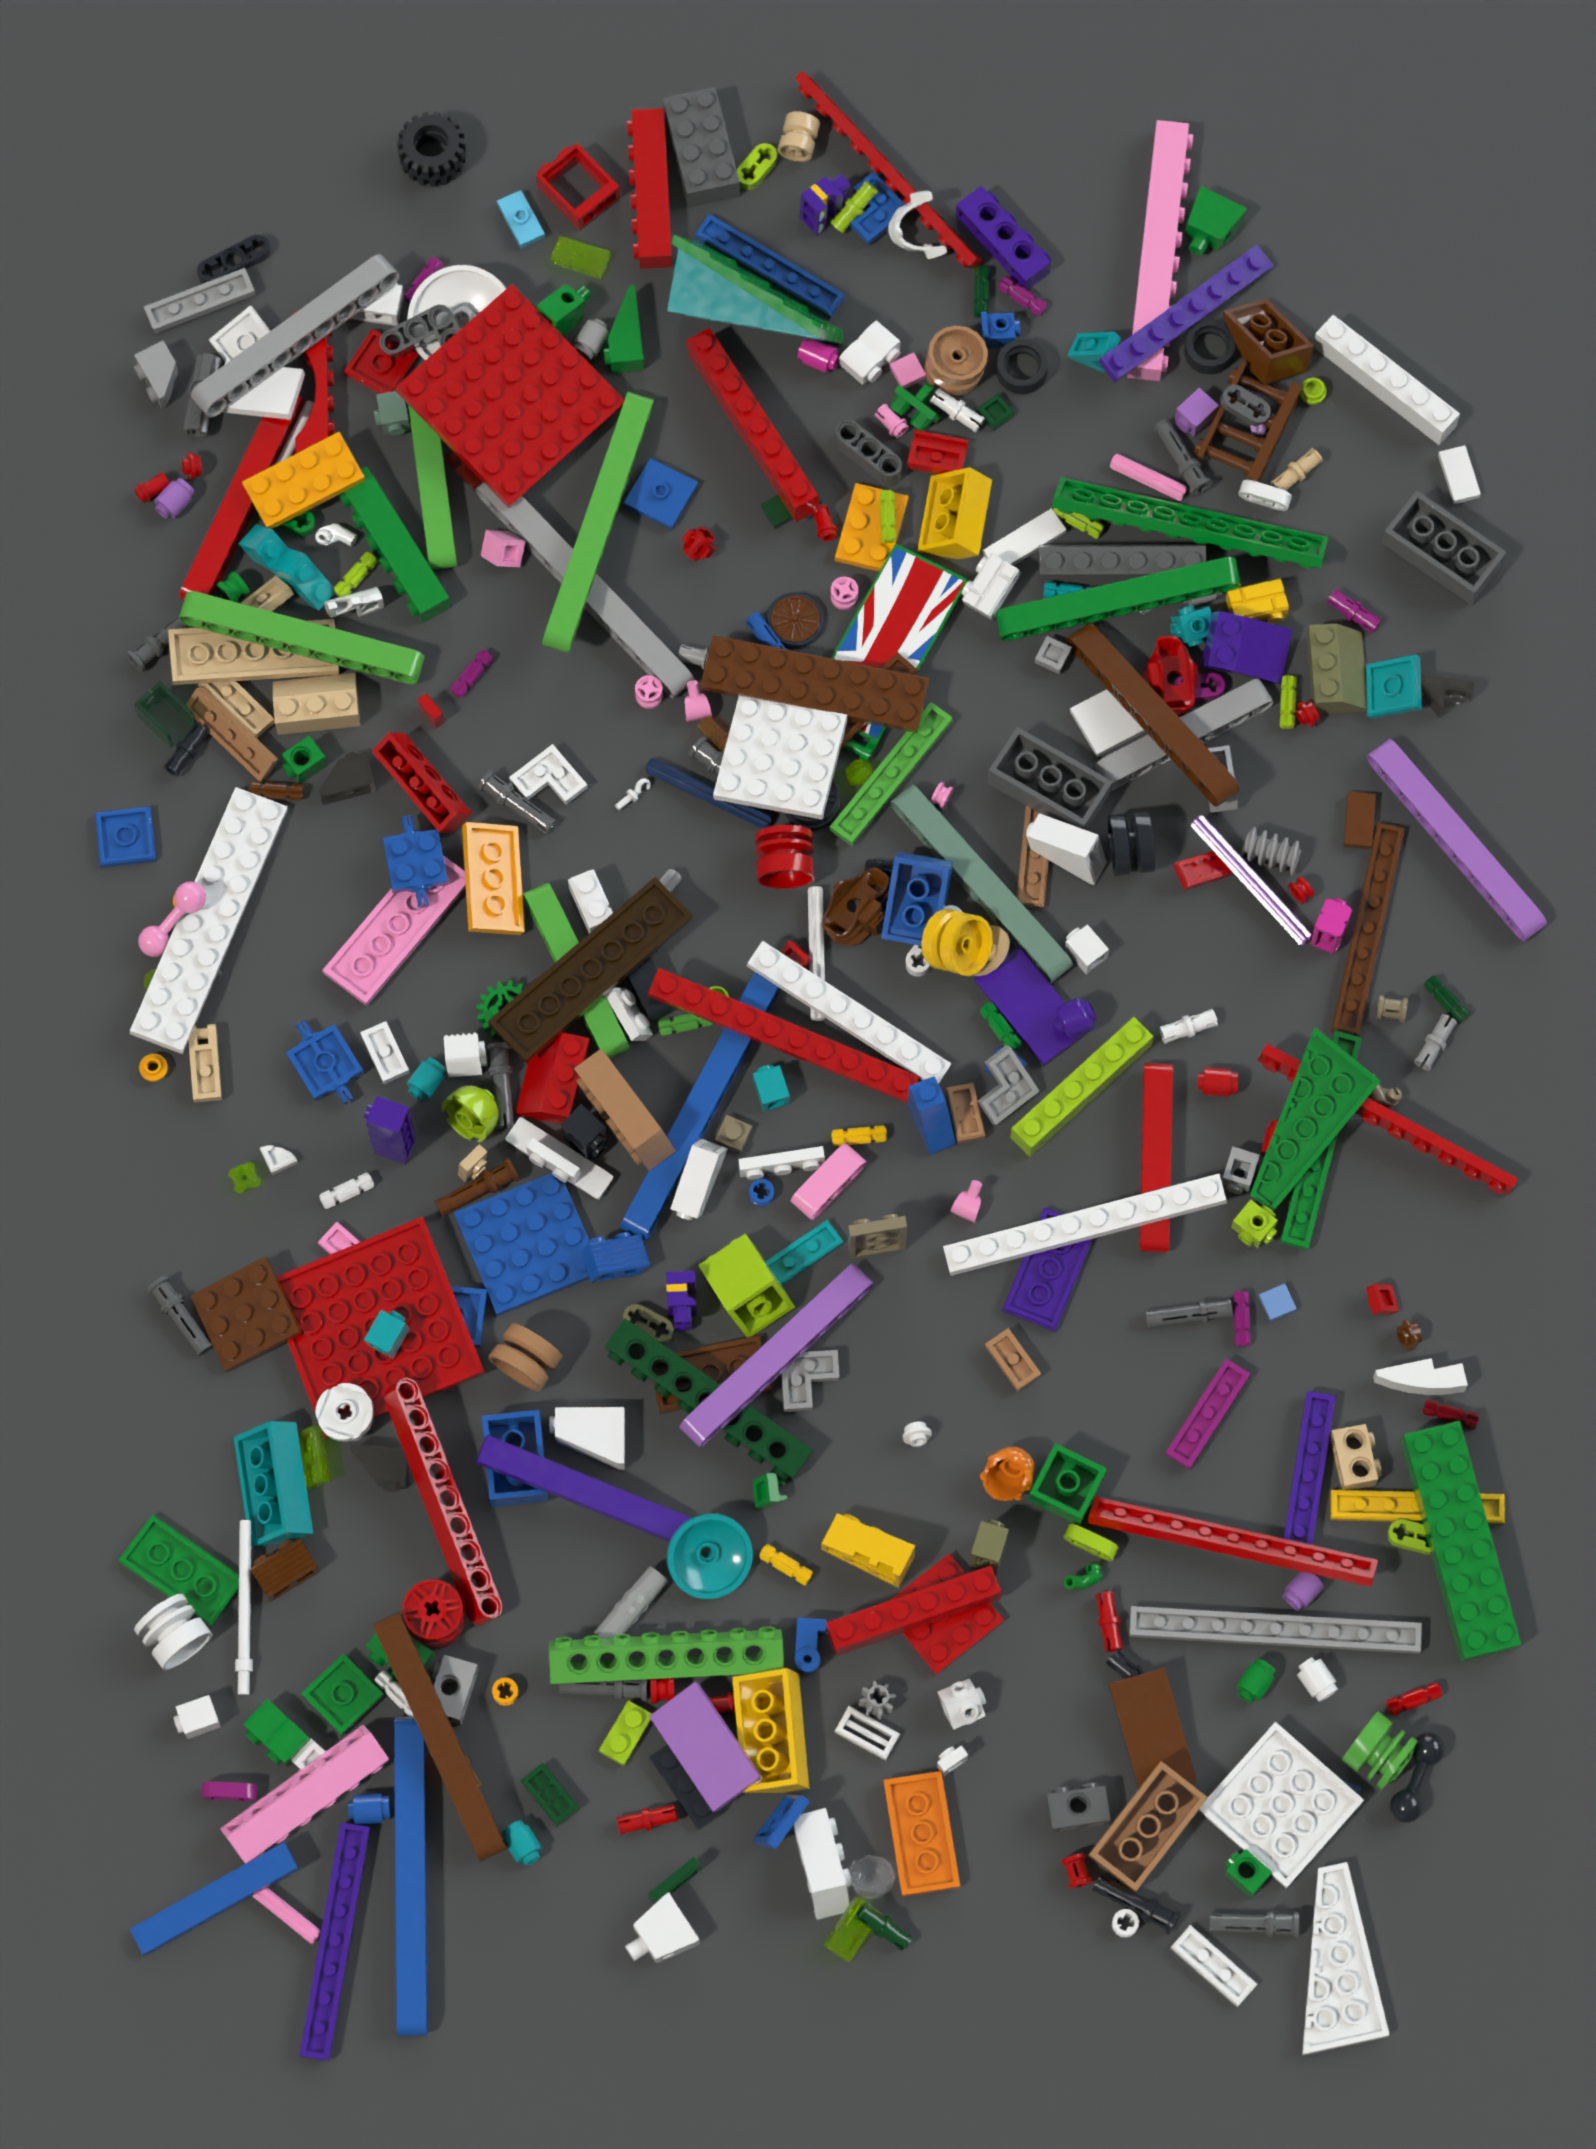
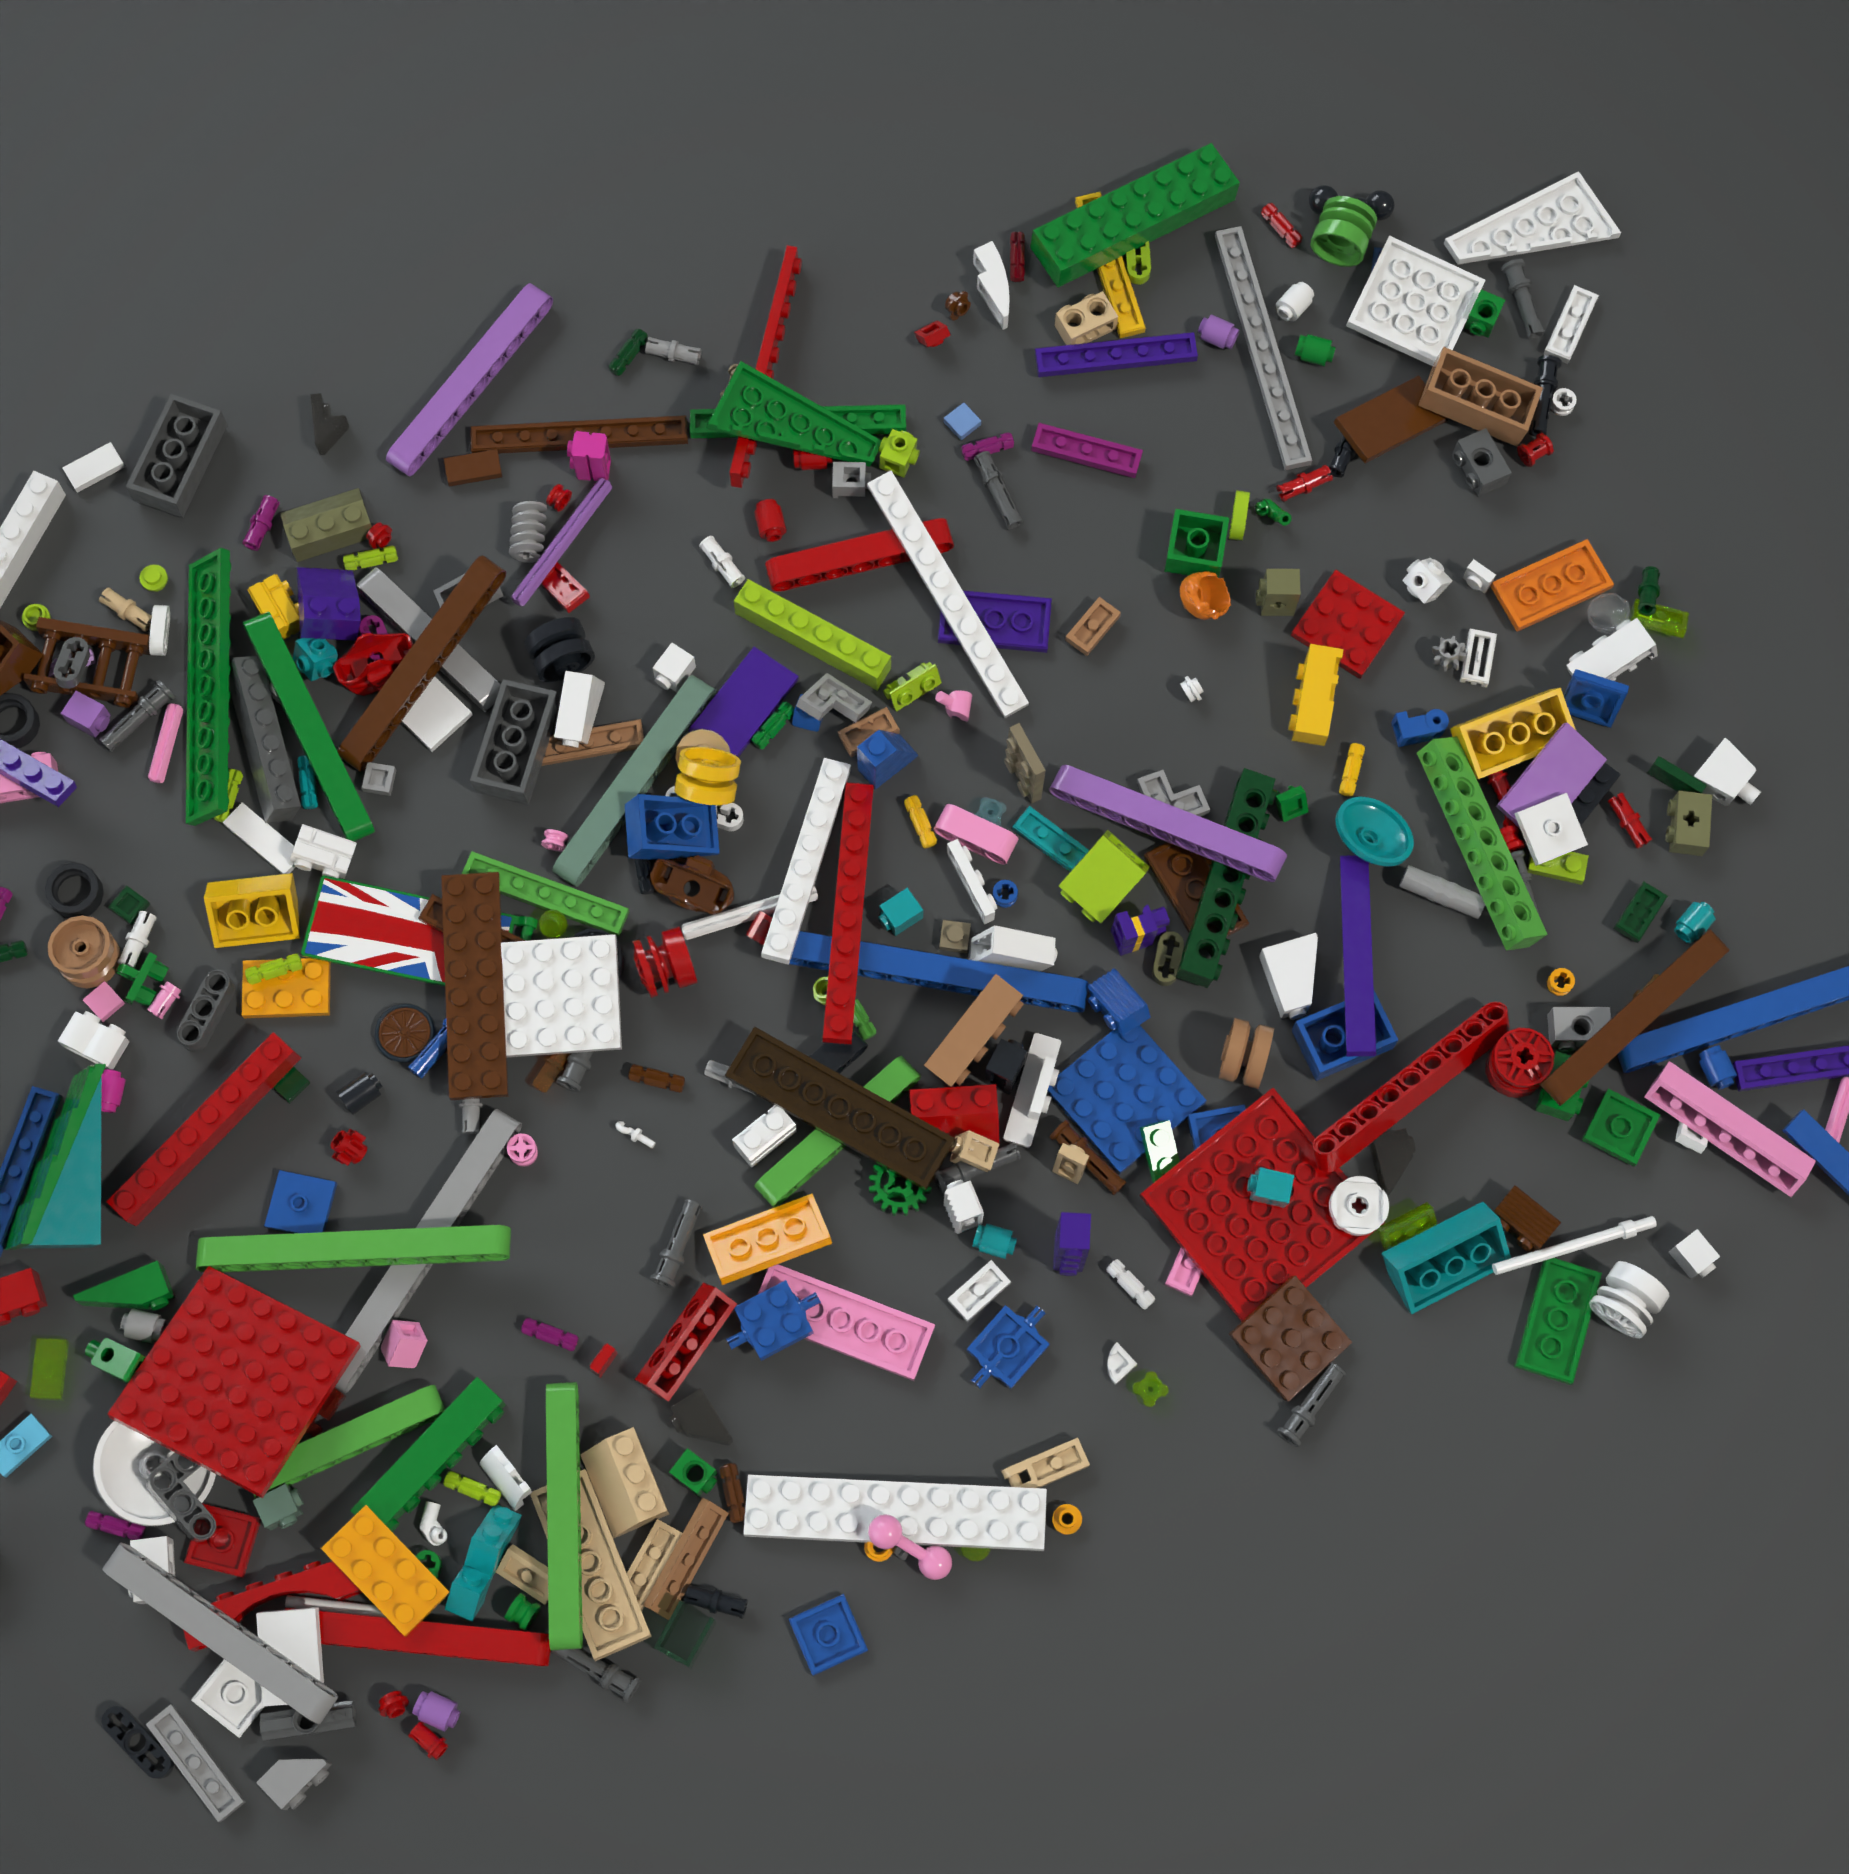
camera: 110 degrees left, 0 degrees up
(229, 1791) = (1751, 1202): magenta beam -> none
(276, 1733) = (1681, 1176): green brick -> none
(393, 1690) = (1598, 1082): white axle -> none
(463, 1253) = (1159, 1148): none -> plate
(471, 1112) = (1015, 1182): lime cylinder -> none
(512, 1080) = (974, 1150): none -> tan bracket
(552, 770) = (633, 1223): white plate -> none
(629, 1015) = (874, 1059): white plate -> none
(635, 1889) = (1695, 809): none -> olive brick
(657, 1727) = (1551, 829): none -> white plate
(680, 827) = (656, 1078): none -> reddish brown axle
(696, 703) = (523, 1099): bright pink piece -> none
(705, 792) = (613, 1067): dark blue axle -> none
(748, 565) = (360, 1092): none -> black brick
(824, 524) = (296, 1031): red pin -> none
(845, 587) = (362, 986): bright pink wheel -> none
(848, 1195) = (988, 804): none -> clear light blue plate
(913, 1610) = (1363, 638): red brick -> none
(936, 453) = (189, 945): red plate -> none
(997, 336) = (37, 933): blue brick -> none
(998, 1157) = (922, 680): none -> lime hinge
(1075, 1018) = (749, 654): dark purple head -> none
(1091, 347) = (38, 825): teal slope -> none
(1233, 1541) = (1200, 390): red plate -> none
(1323, 502) = (153, 578): none -> lime plate
(1391, 1008) = (652, 393): dark tan bush -> none
(1393, 686) = (331, 466): teal tile -> none

